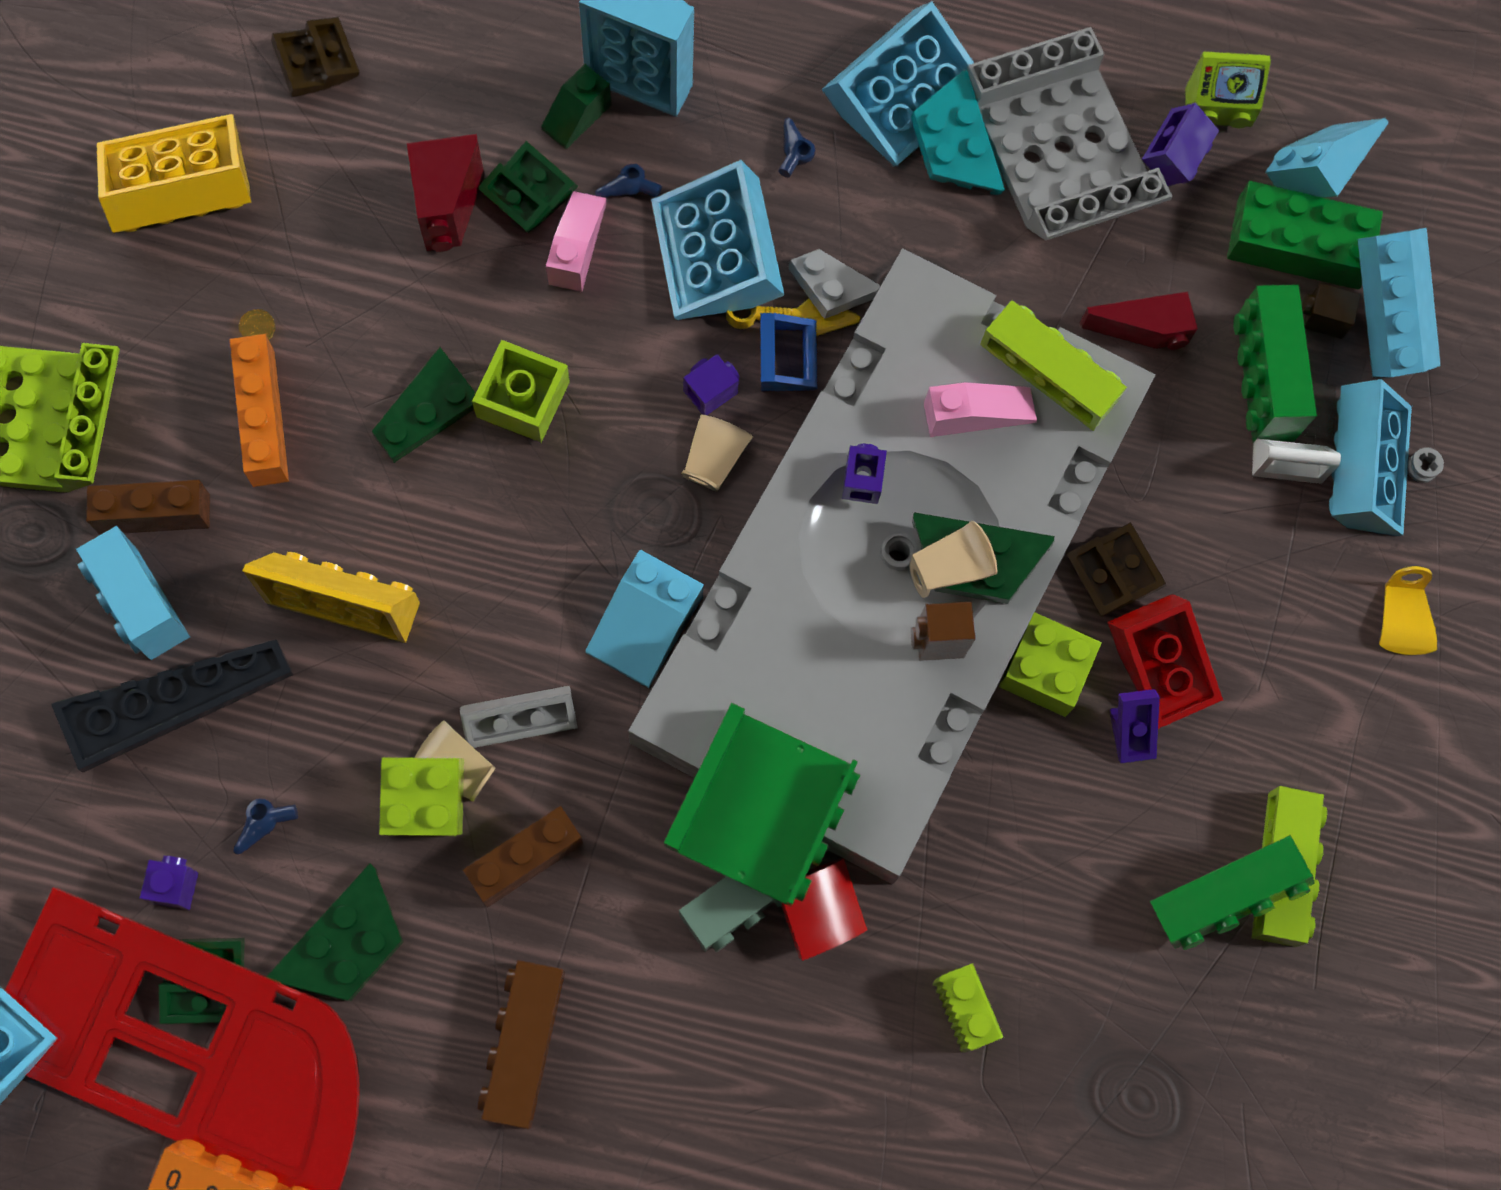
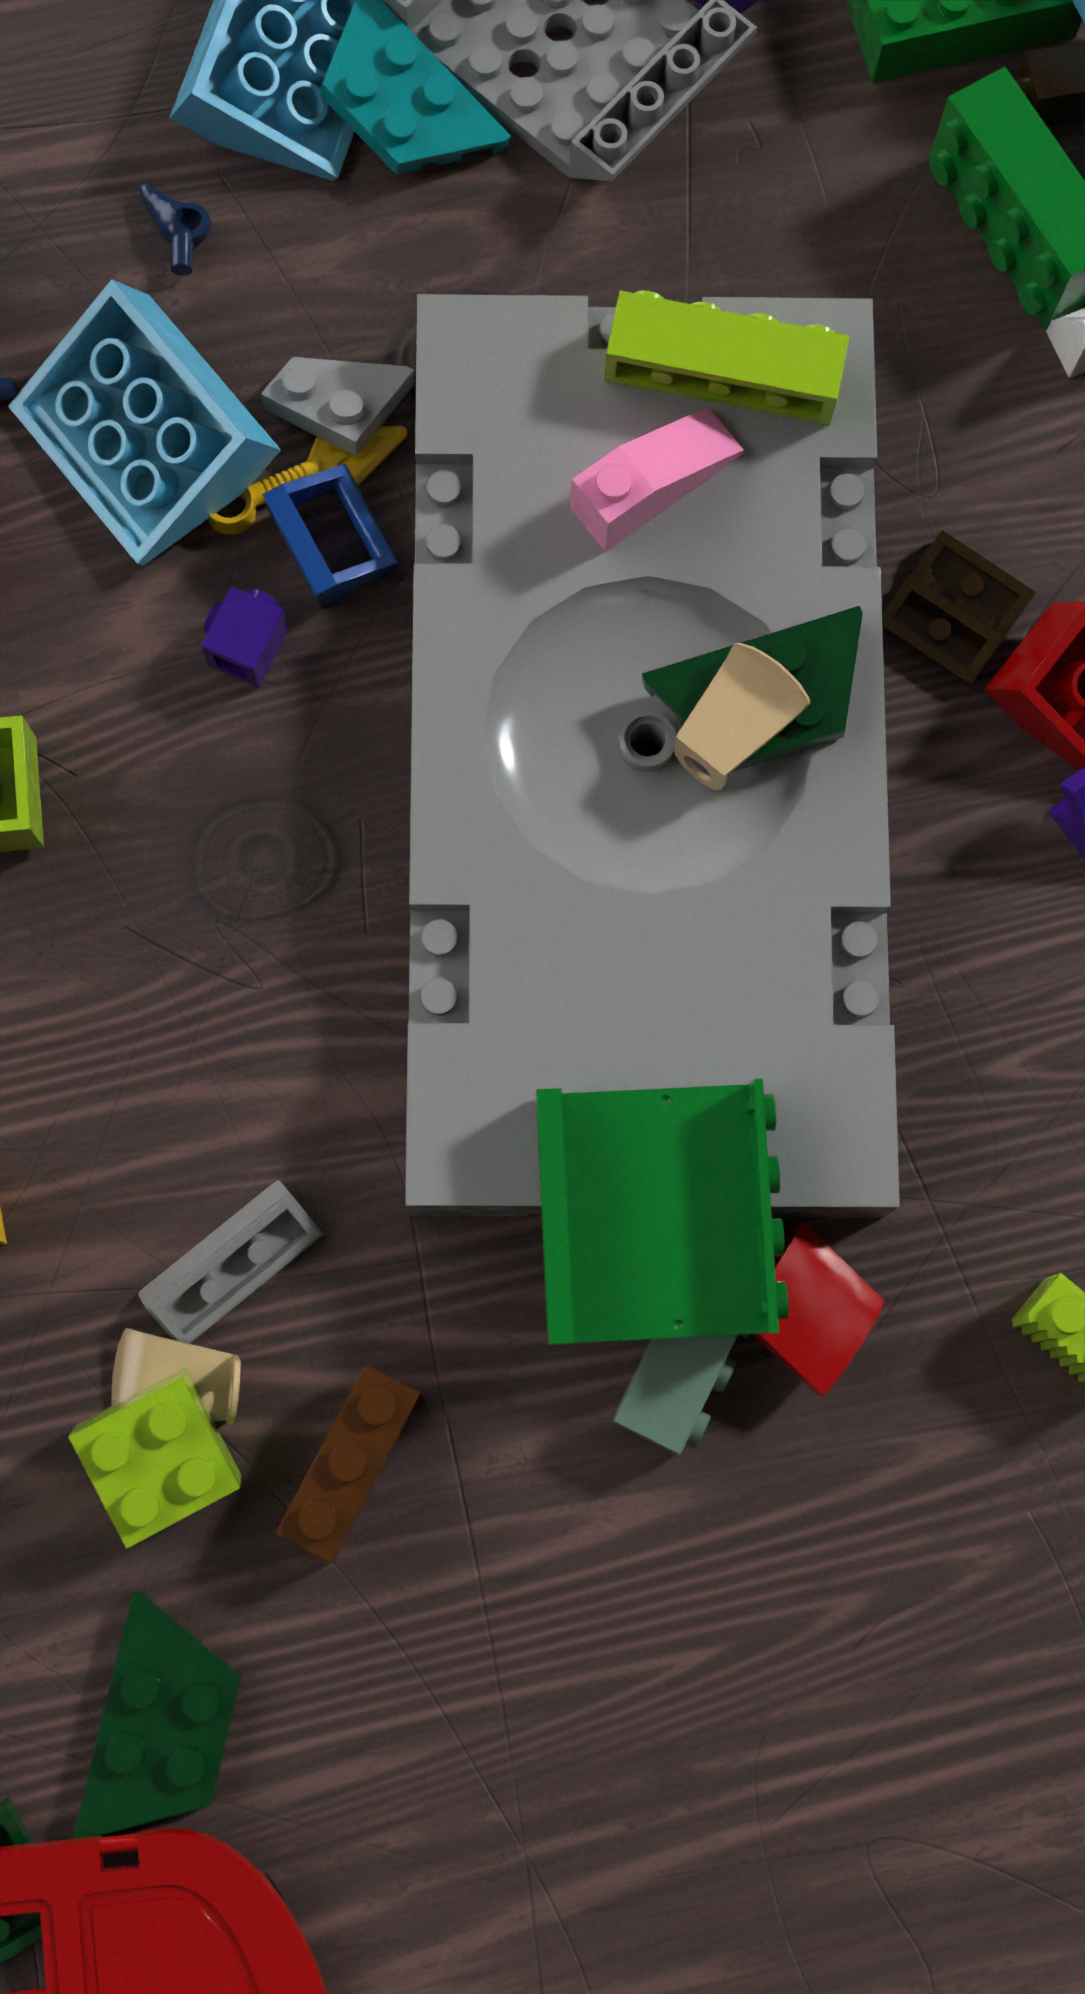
camera: 25 degrees left, 5 degrees up
(523, 1044) = (496, 1732): reddish brown brick -> none
(645, 618) = (335, 1026): medium azure slope -> none
(714, 451) = (302, 730): tan piece -> none
(861, 487) = (548, 631): dark purple brick -> none
(944, 631) = (782, 824): reddish brown brick -> none
(1050, 665) = (945, 791): lime brick -> none
(1146, 321) = (812, 229): dark red slope -> none

